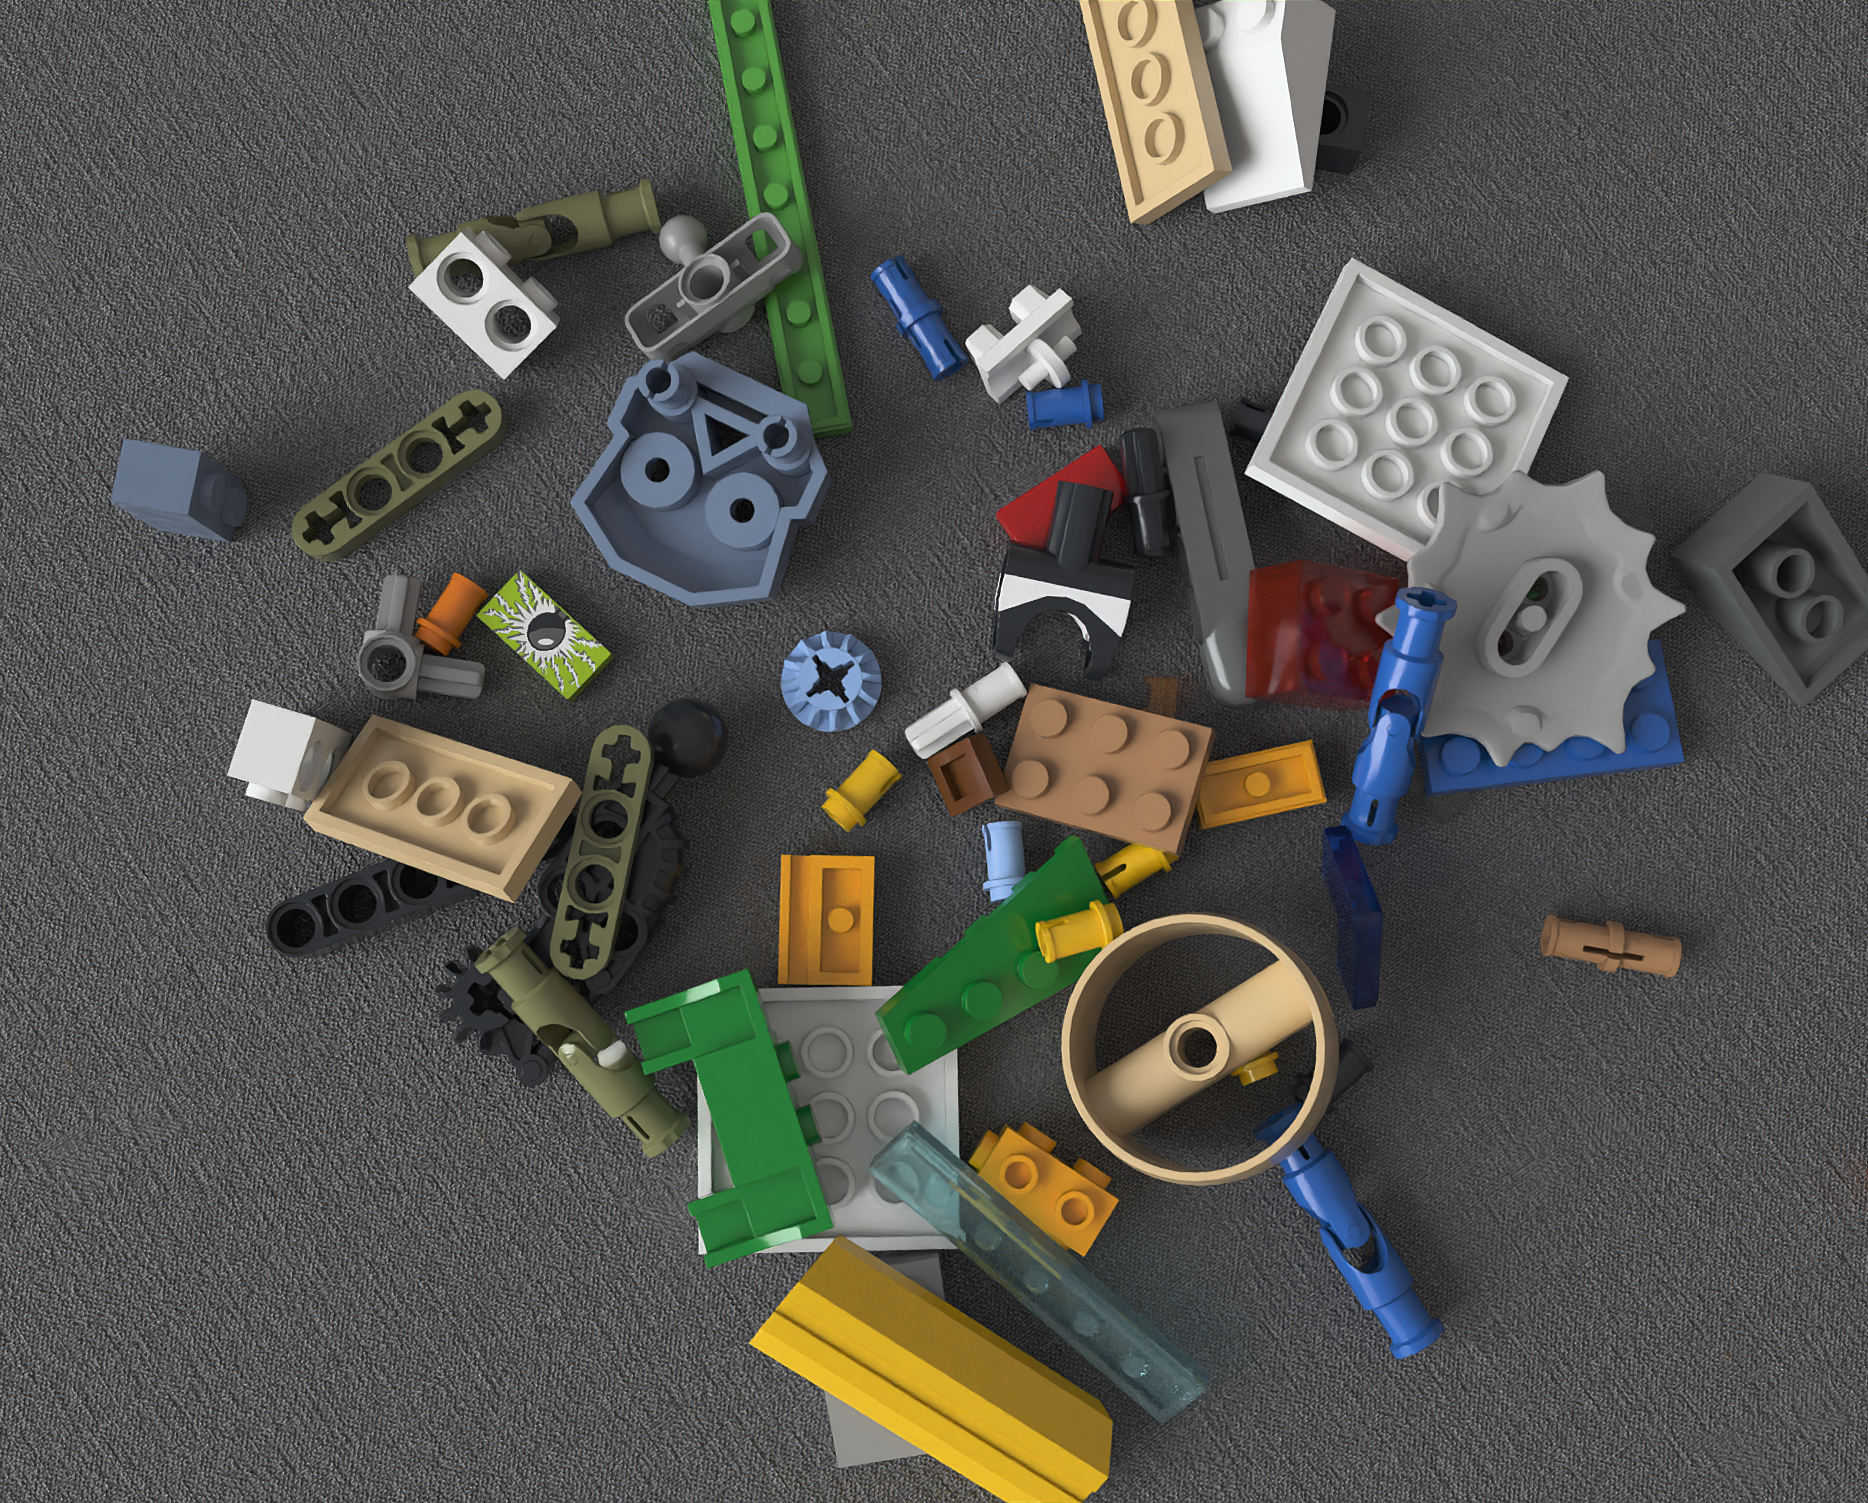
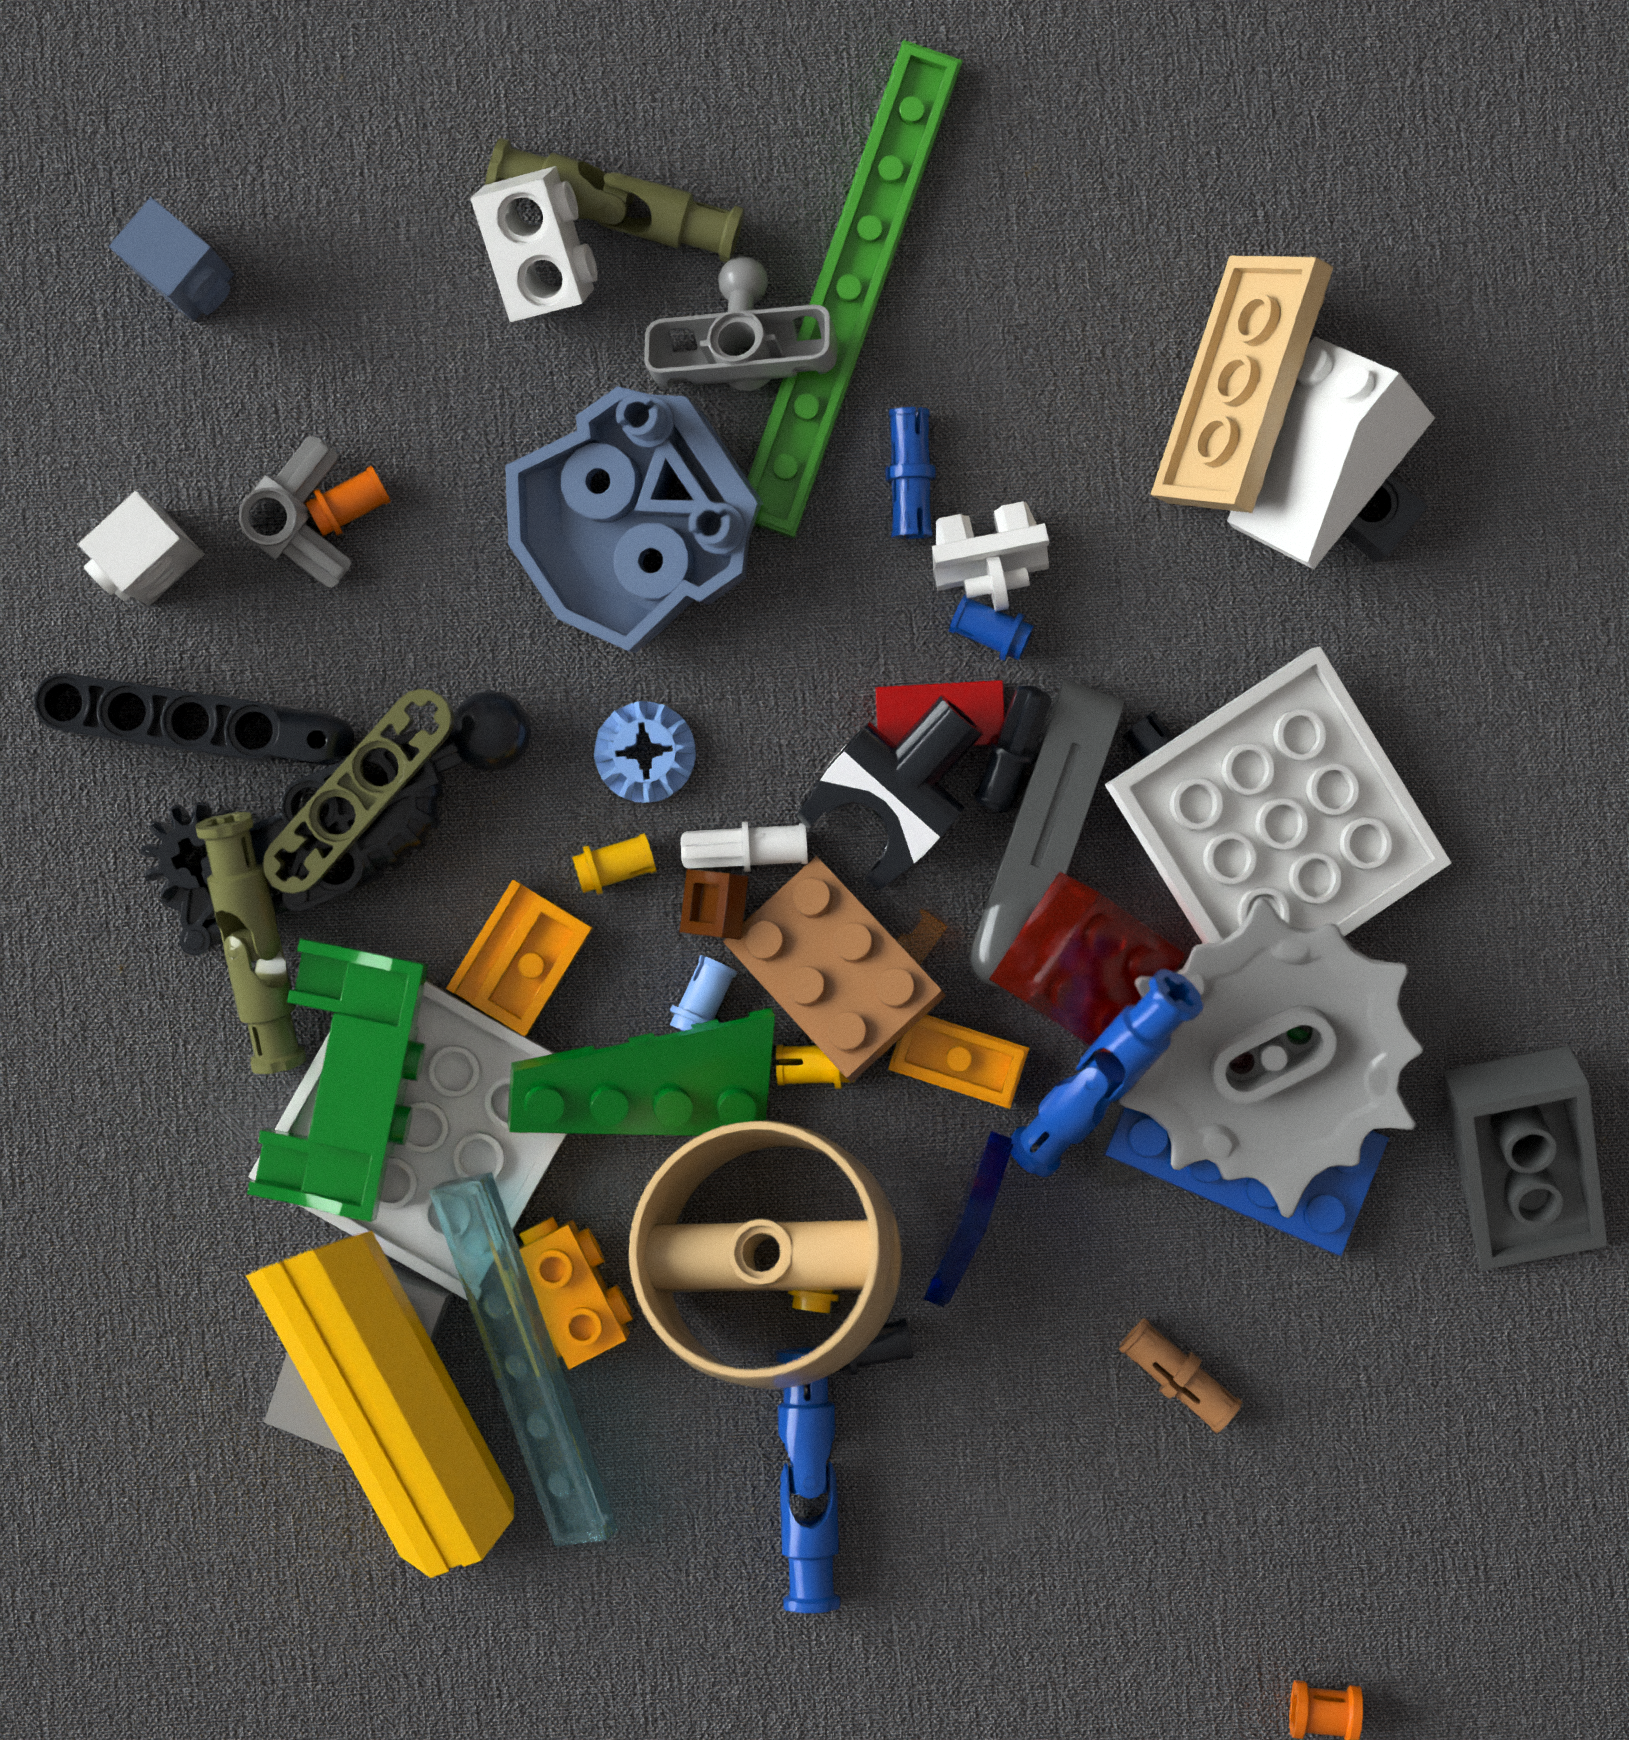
camera: 35 degrees right, 5 degrees up
(406, 485) = (373, 341): olive beam -> none
(444, 807) = (245, 672): tan plate -> none
(545, 636) = (419, 567): tile -> none
(1079, 931) = (724, 1096): yellow pin -> none

